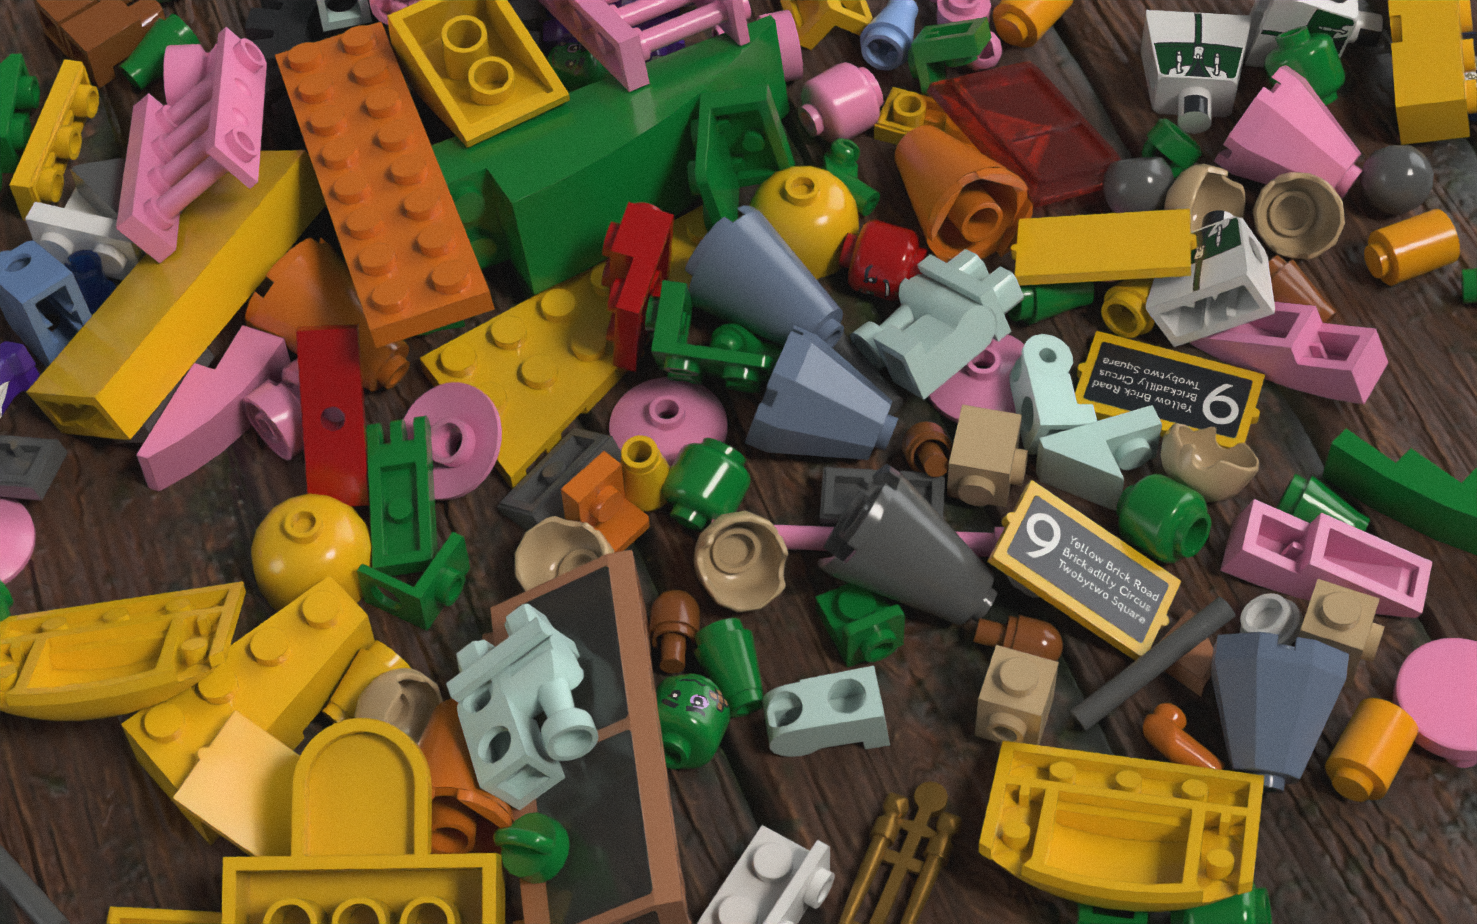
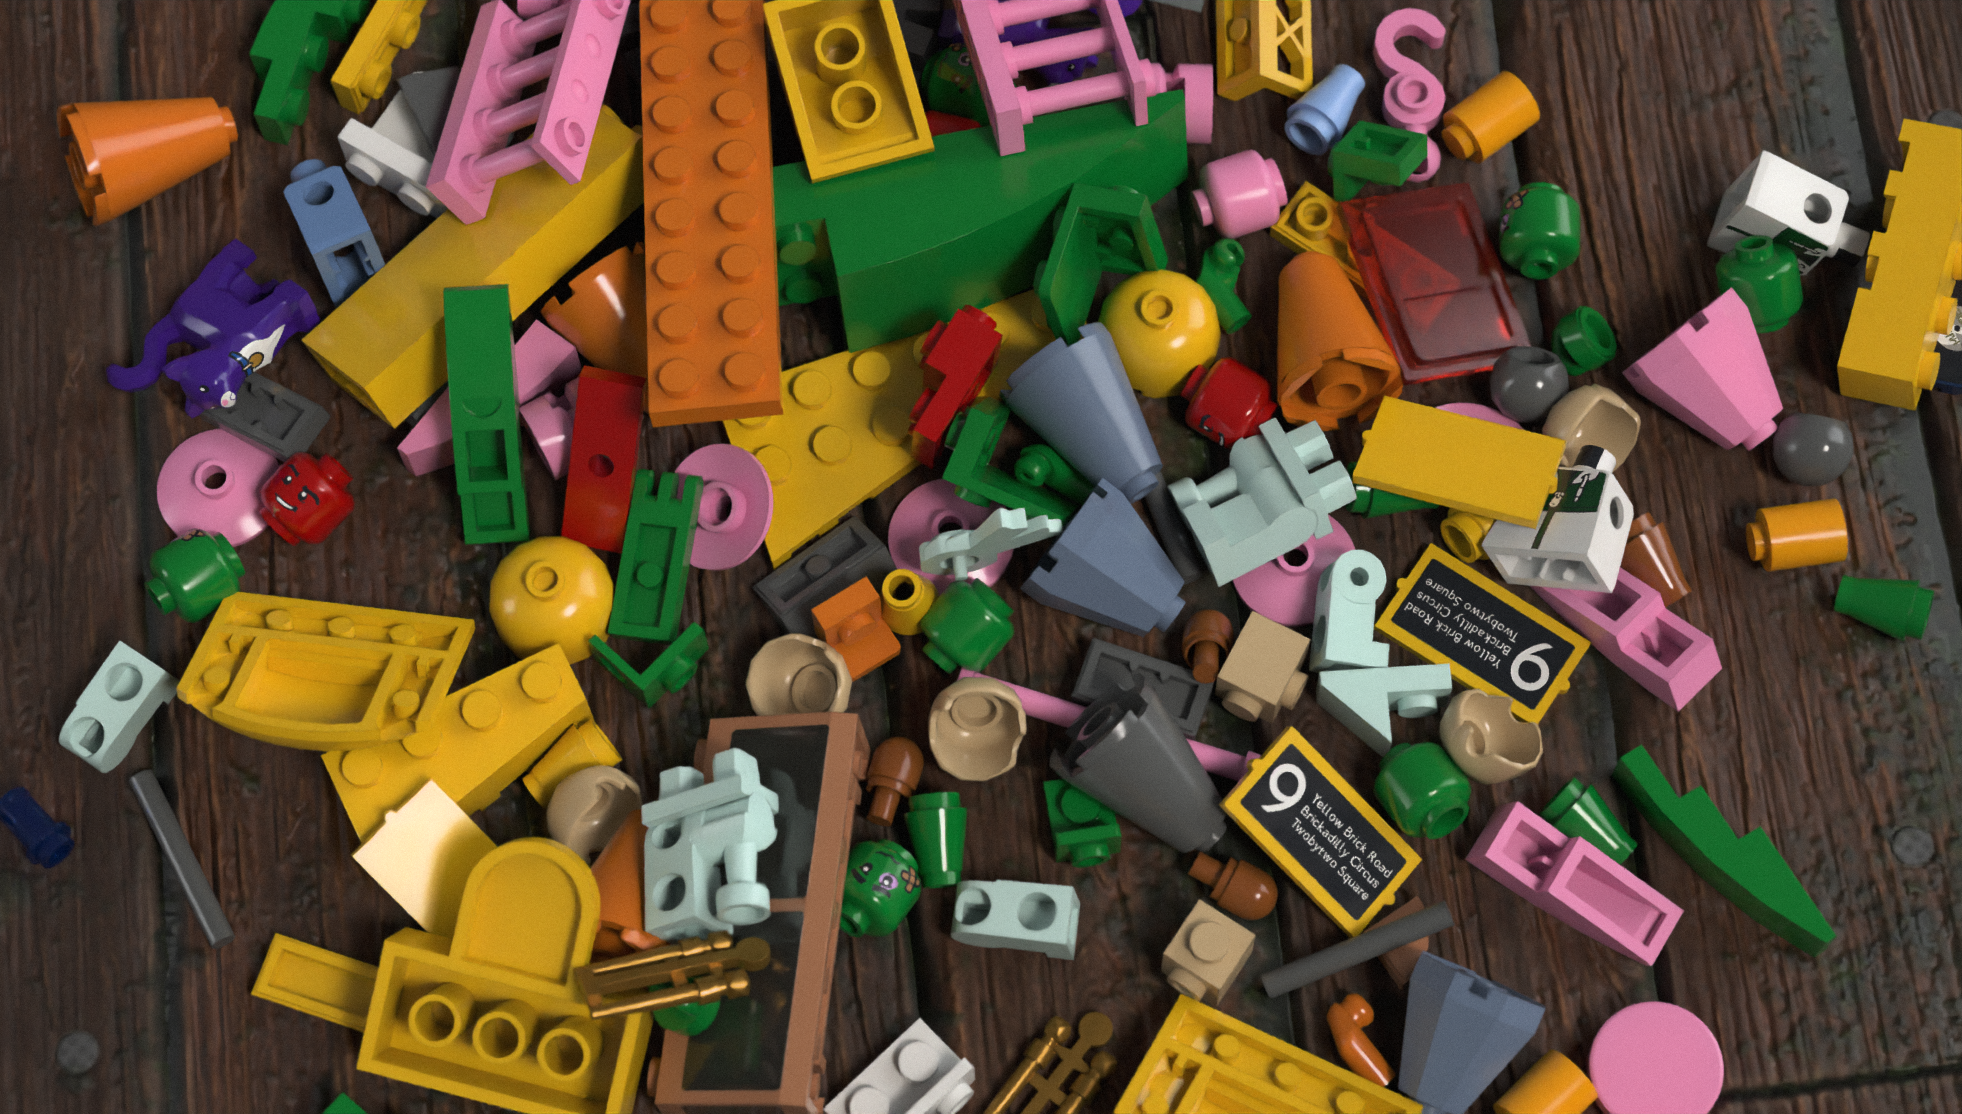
camera: 15 degrees right, 15 degrees up
(60, 522) = (307, 498): none -> red head
(90, 277) = (393, 222): clear blue pin -> none
(215, 403) = (485, 413): none -> green slope
(530, 797) = (674, 964): none -> pearl gold piece
(695, 413) = (972, 550): none -> light aqua piece
(1101, 73) = (1540, 228): none -> green head
(1193, 64) = (1644, 242): white torso -> none
(1272, 615) = (1493, 936): white plate -> none
(1298, 215) = (1688, 468): tan hair -> none
(1343, 621) = (1555, 967): tan brick -> none

